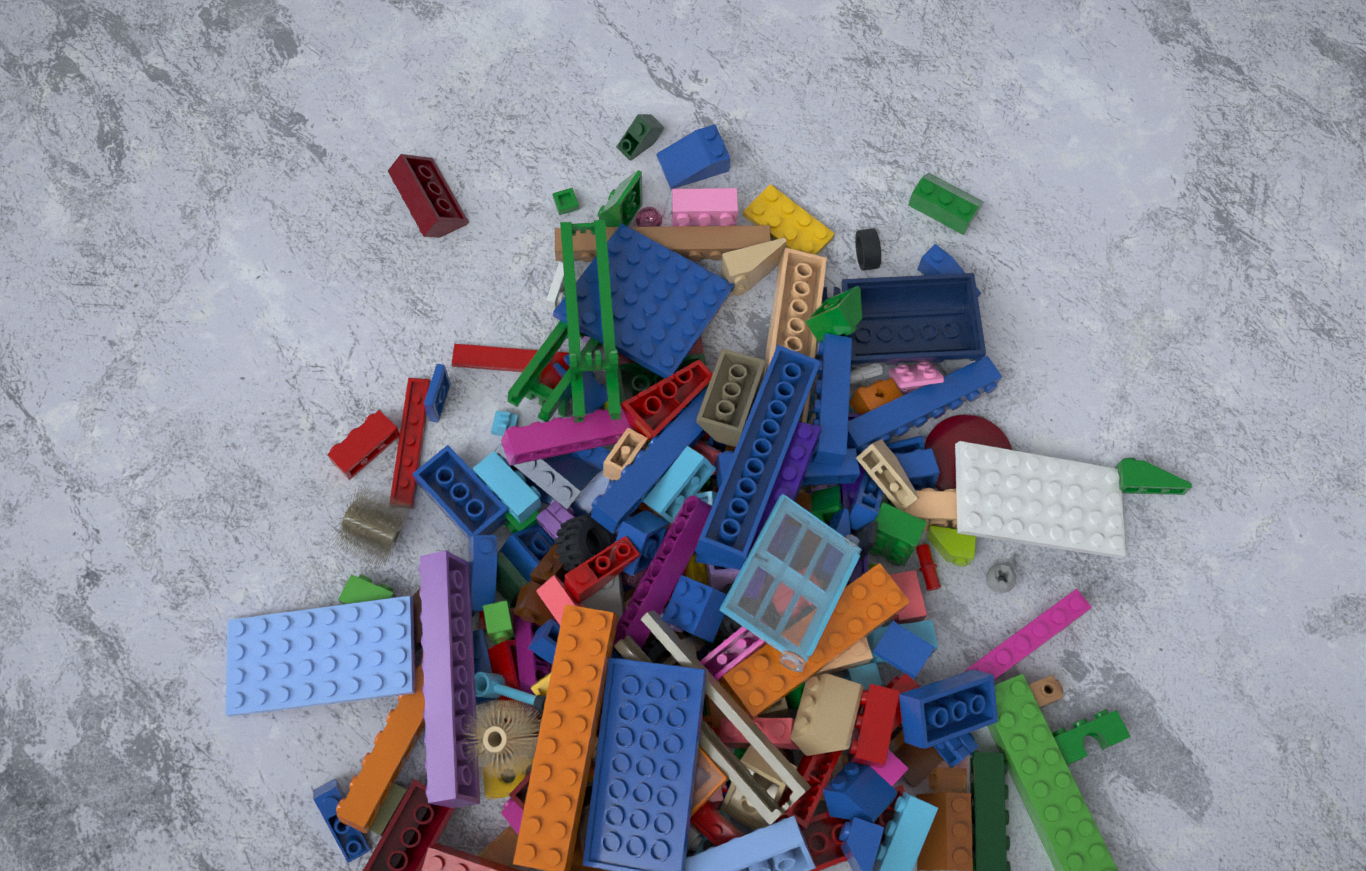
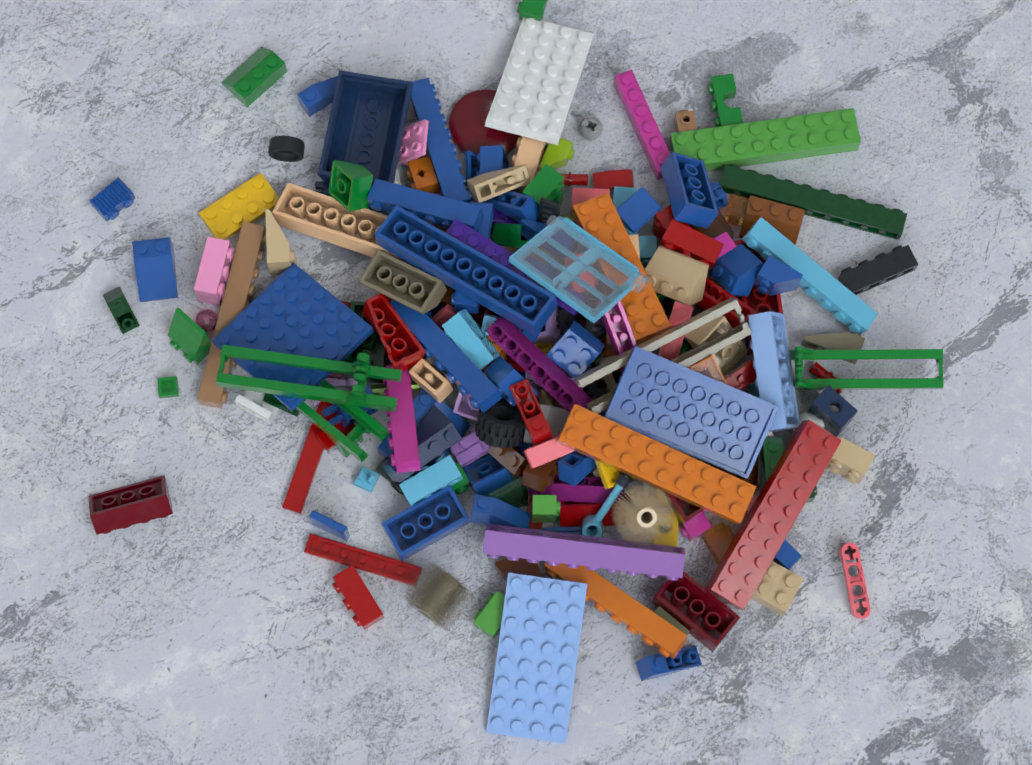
camera: 75 degrees left, 5 degrees up
(761, 100) = (112, 199): none -> blue brick
(944, 620) = (613, 178): none -> red slope

